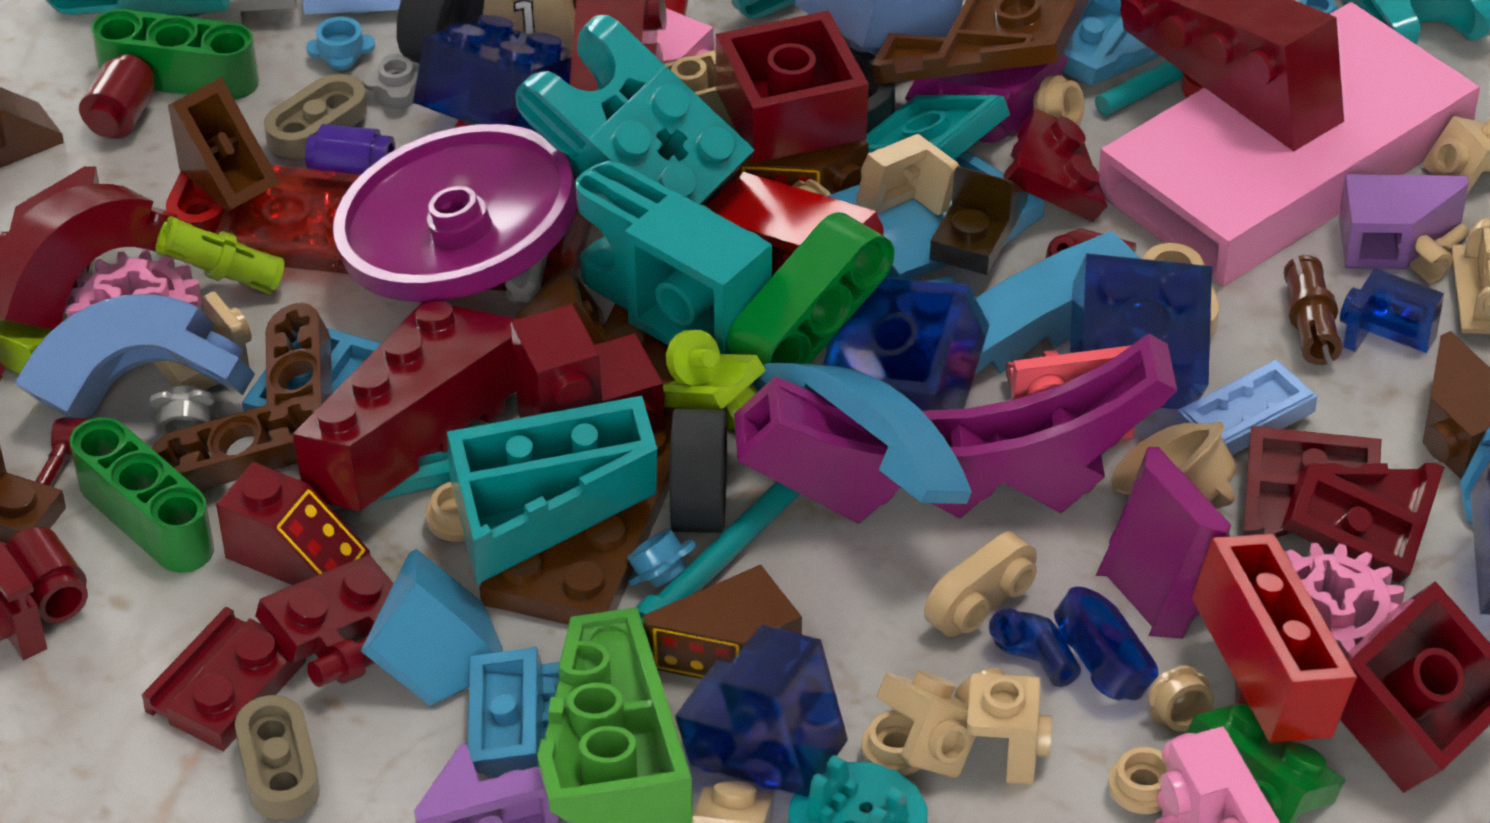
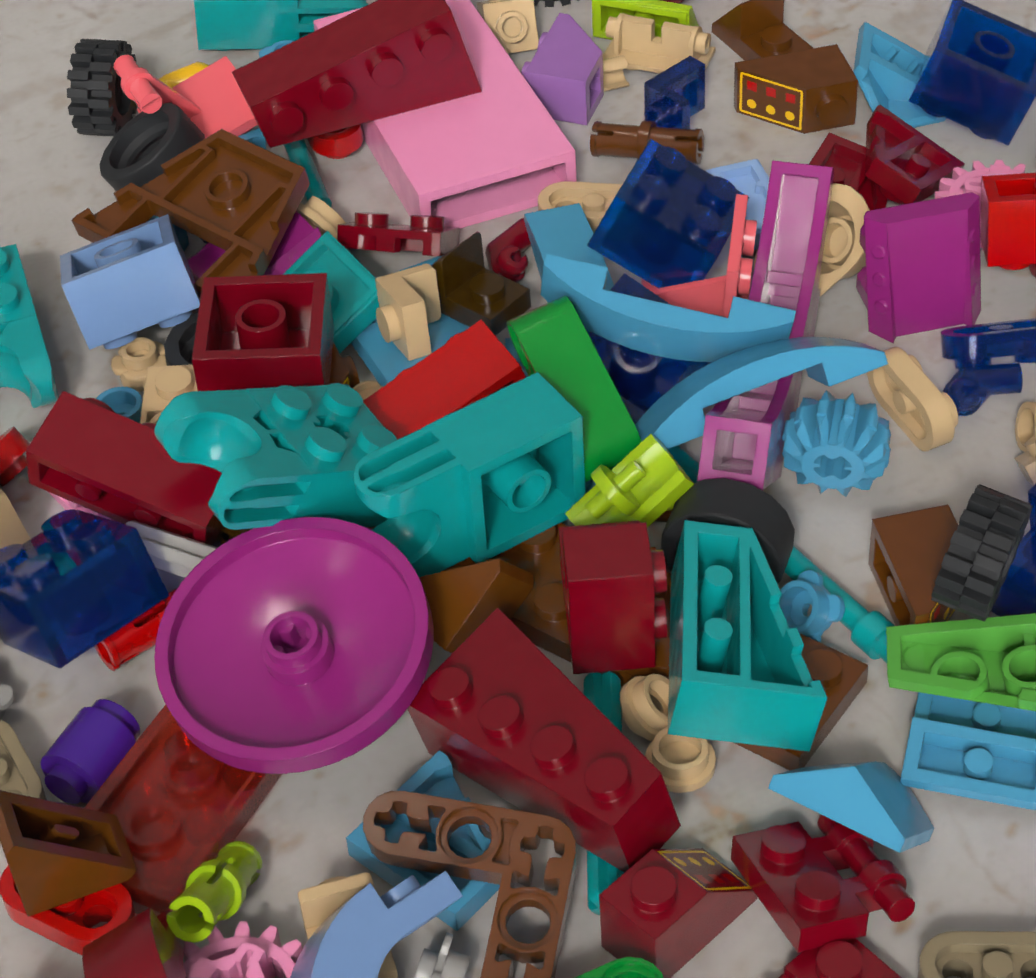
camera: 70 degrees left, 0 degrees up
(686, 615) = (981, 552): none -> black tyre
(868, 527) = (836, 443): none -> dark azure gear
(901, 265) = (657, 326): none -> dark azure slope

